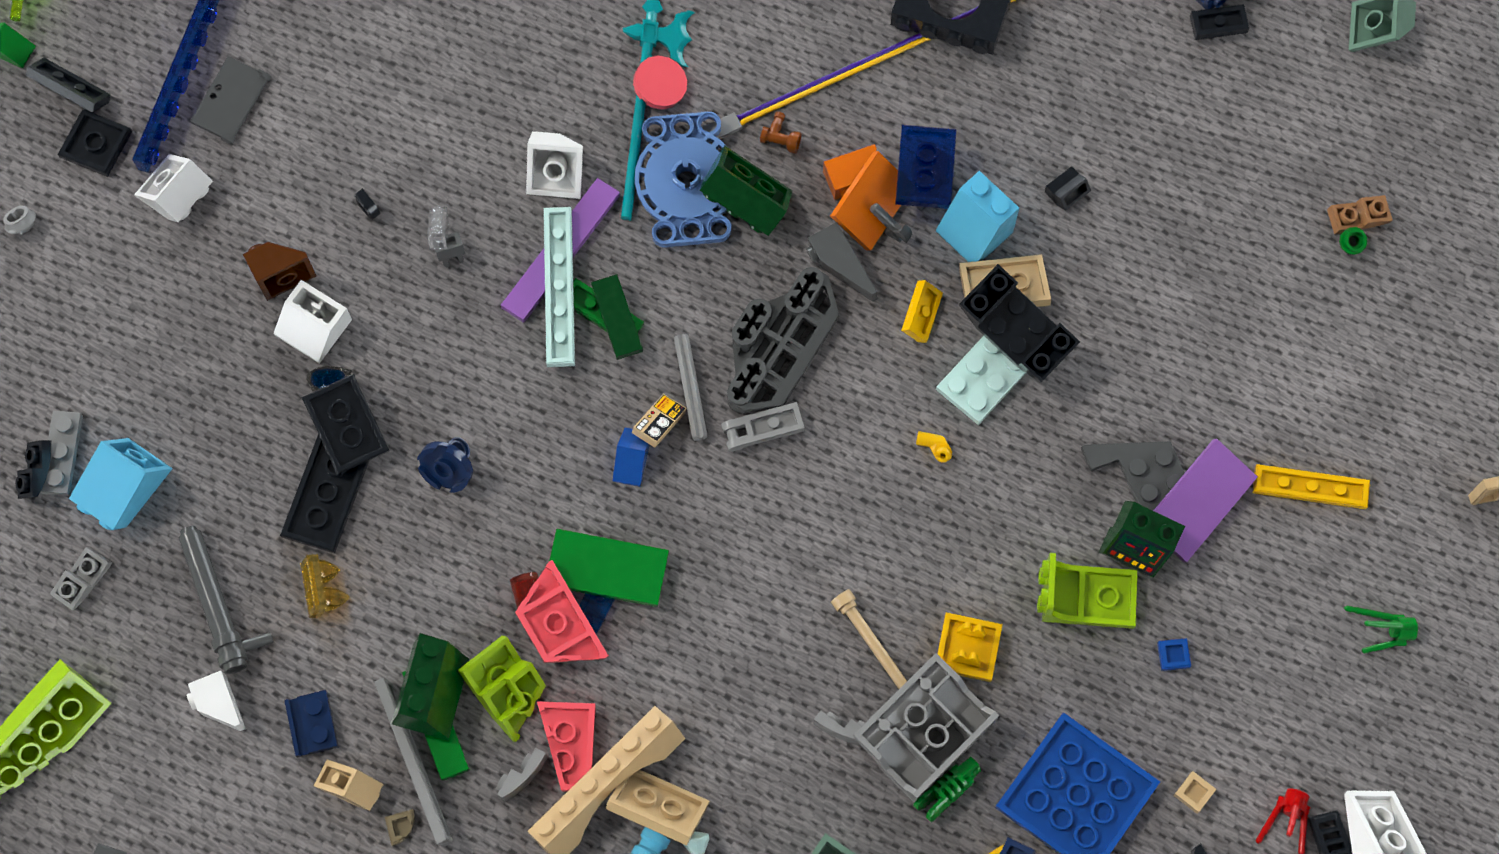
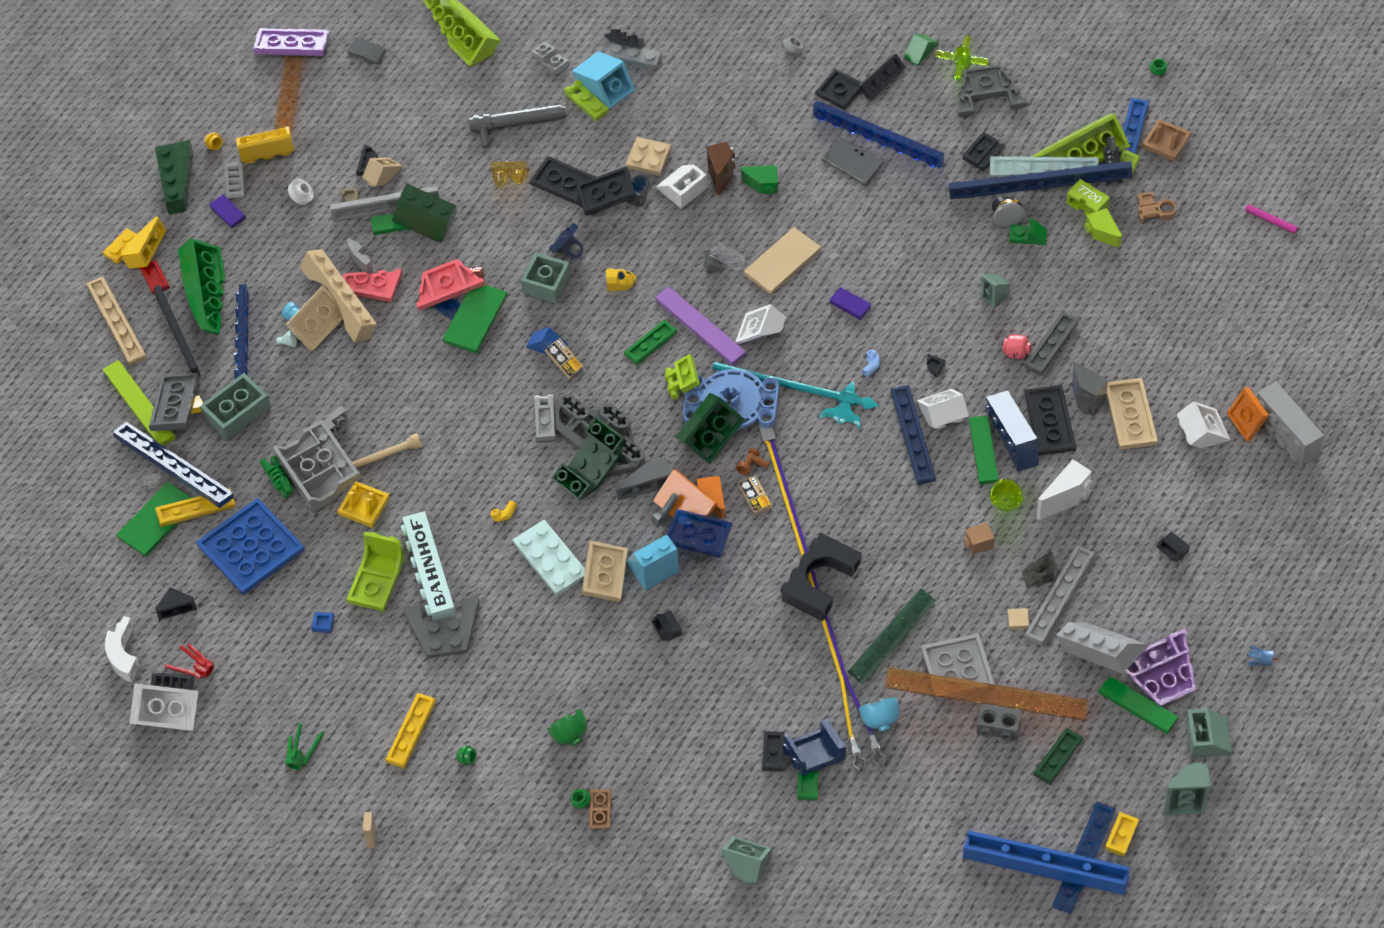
camera: 105 degrees right, 15 degrees down
(161, 503) = (586, 100): none -> lime plate
(174, 187) = (794, 123): white slope -> none
(215, 700) = (451, 113): white slope -> none
(258, 388) = (648, 156): none -> tan plate
(285, 212) = (761, 178): none -> green slope
(311, 723) = (426, 159): dark blue plate -> none
(326, 817) = (367, 153): none -> black tile
(367, 204) = (757, 223): black tile -> none
(426, 162) = (782, 260): none -> tan tile
(486, 59) = (850, 303): none -> dark purple tile
(499, 377) = (619, 279): none -> yellow rock
(504, 685) = (418, 255): lime slope -> none
(521, 477) = (545, 277): none -> sand green brick
(559, 287) = (671, 317): light aqua tile -> none
(584, 11) = (873, 363): none -> light blue arm
(617, 317) = (641, 345): dark green tile -> none
(659, 241) = (685, 372): none -> lime plate
(660, 82) = (806, 396): coral tile -> none
(690, 387) = (584, 382): light grey axle -> none
(832, 121) = (755, 495): none -> tile
(836, 339) = (592, 461): none -> dark green slope
(922, 311) = (599, 520): yellow plate -> none
(1017, 325) = (568, 563): black slope -> none
(1051, 525) = (429, 567): none -> light aqua brick
(1141, 538) = (401, 608): dark green piece -> none
(1194, 792) = (229, 612): tan plate -> none
(1205, 495) = (419, 655): medium lavender tile -> none
(1260, 274) = (569, 729): none -> green cylinder
(1332, 401) = (466, 755): none -> green plate

